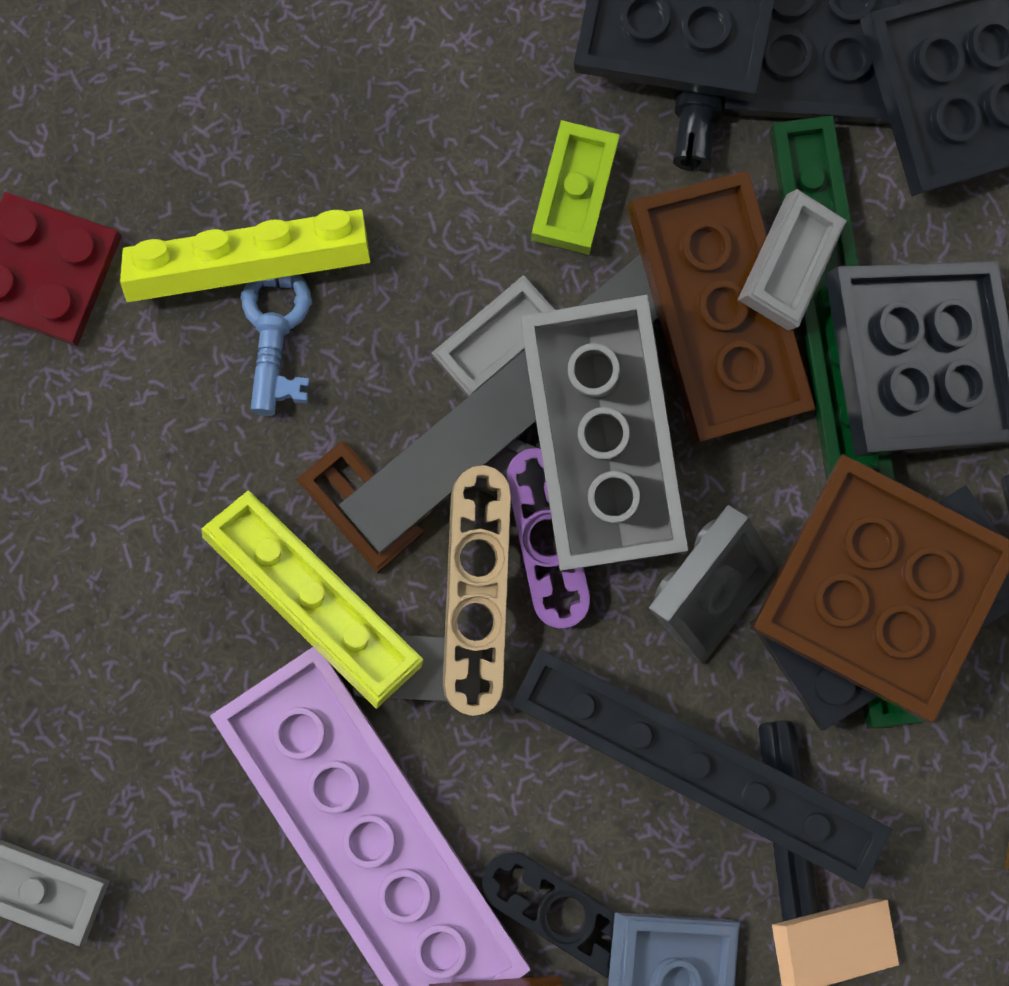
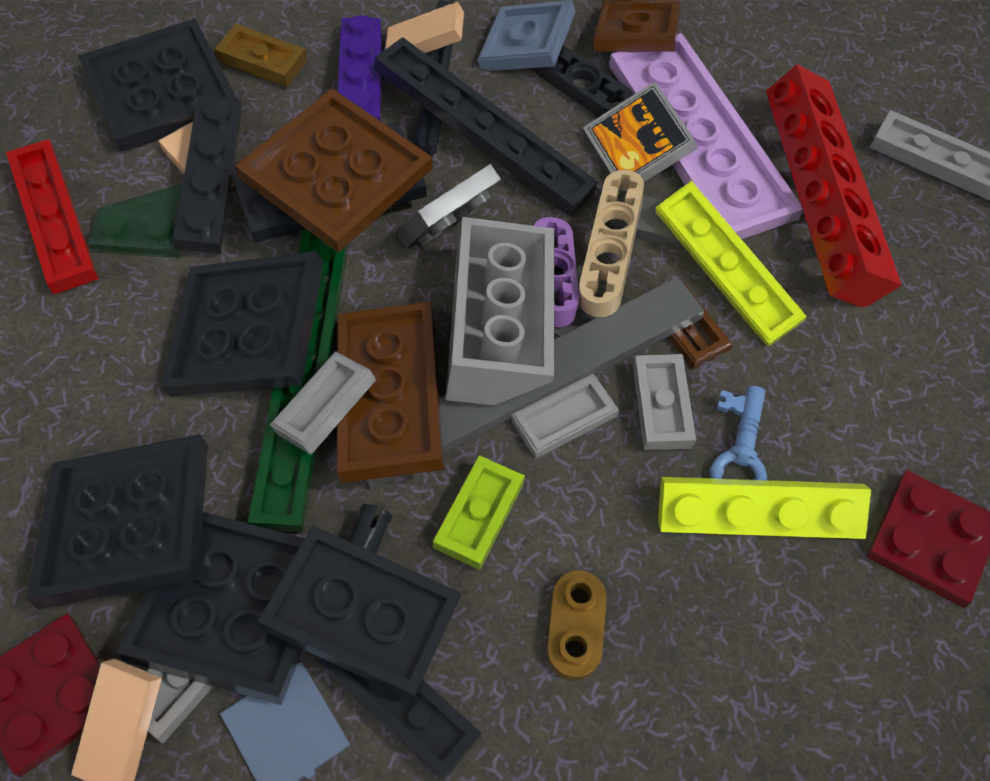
camera: 170 degrees left, 20 degrees down
(174, 769) = (832, 189): none -> red brick
(377, 374) = (663, 402): none -> light grey plate
(440, 87) = (576, 623): none -> pearl gold plate
(461, 800) = (641, 134): none -> tile
(917, 851) = (358, 48): none -> dark purple plate

